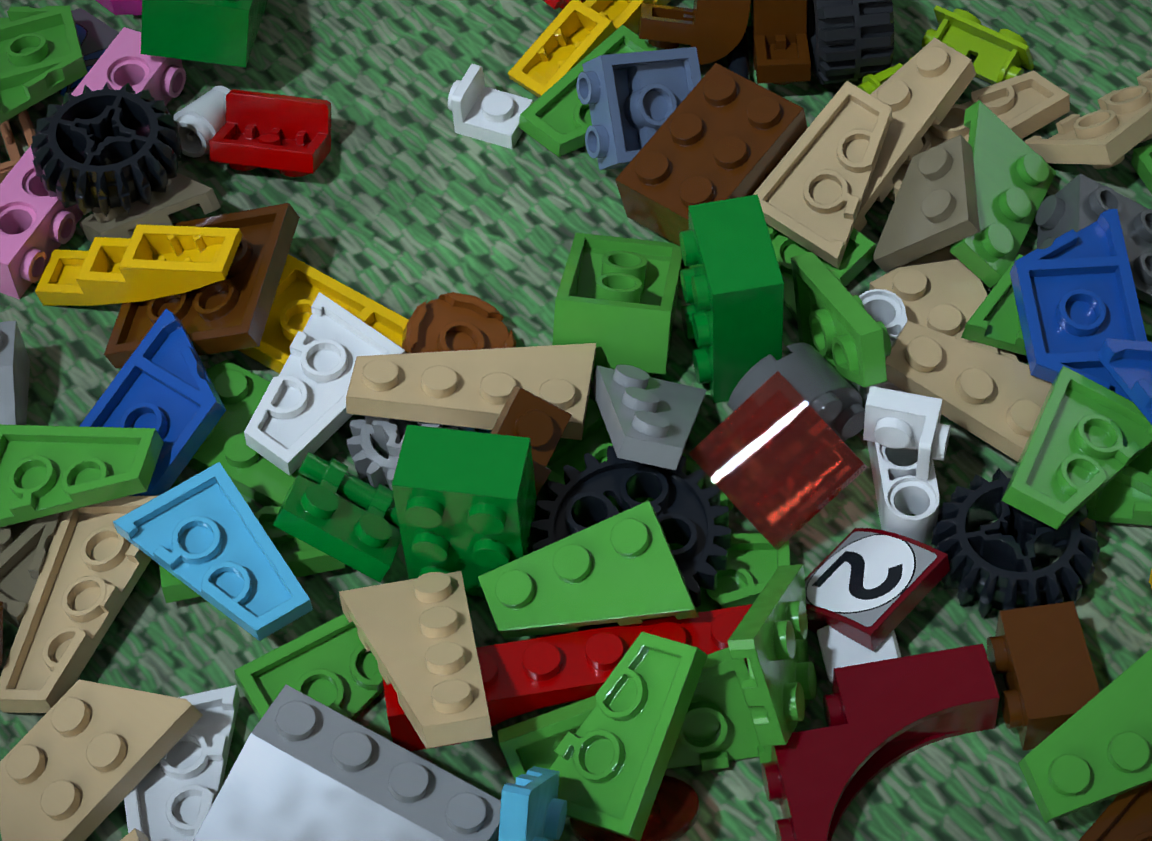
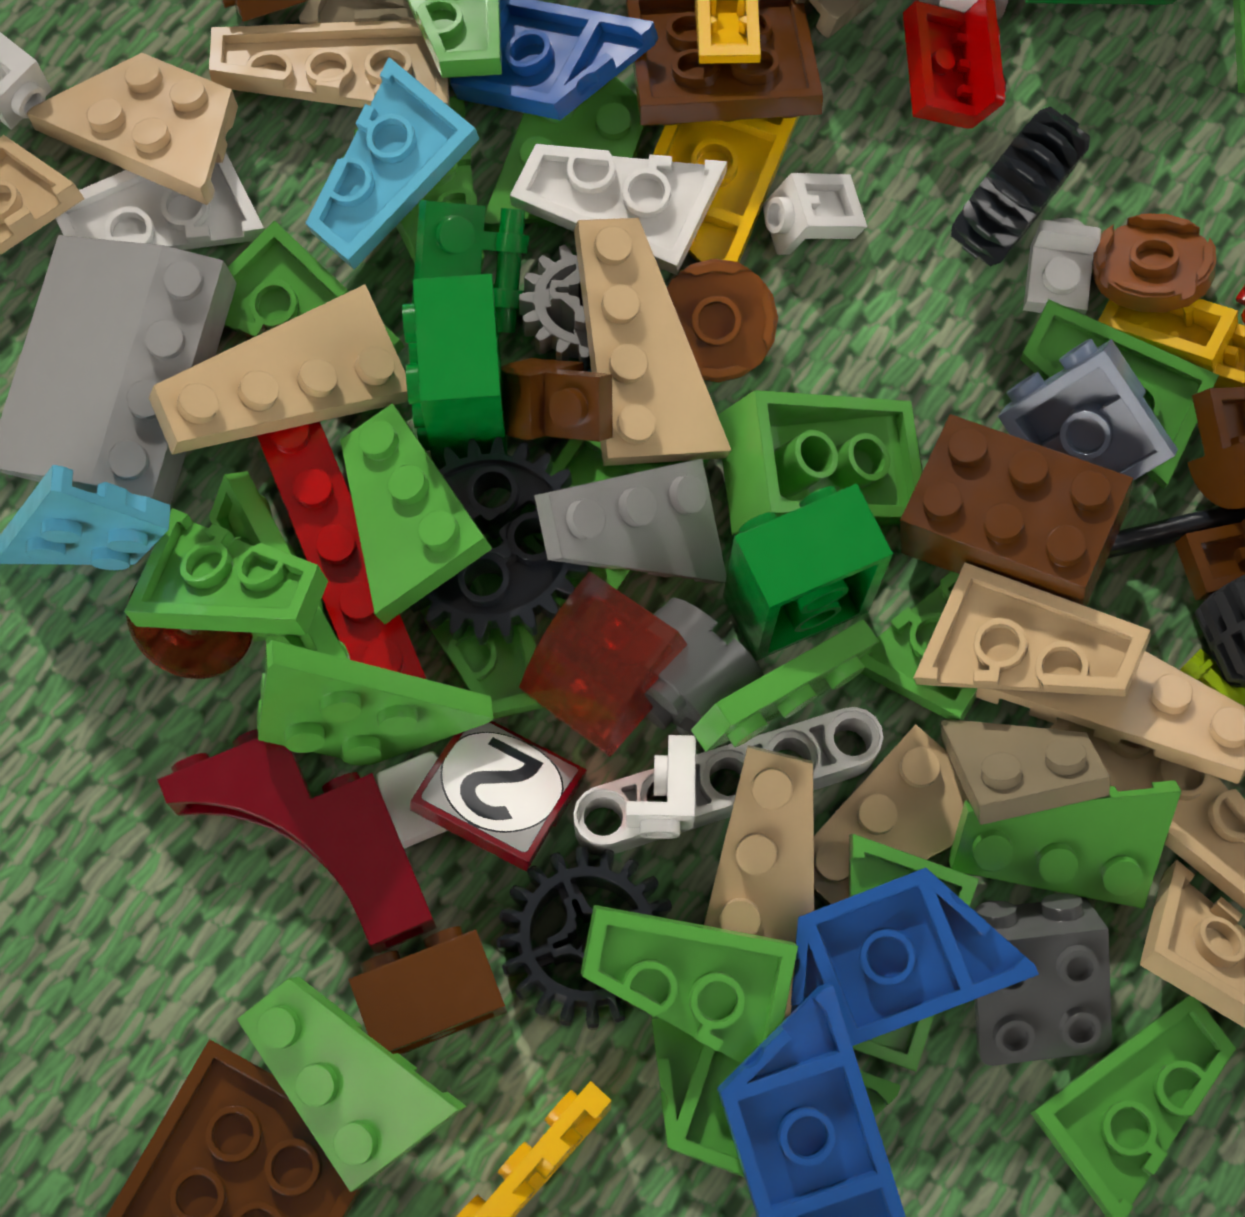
camera: 70 degrees right, 20 degrees up
(375, 263) = (813, 209): none -> white bracket
(421, 97) = (1020, 186): none -> black gear
(509, 45) = (1154, 263): none -> dark orange tile

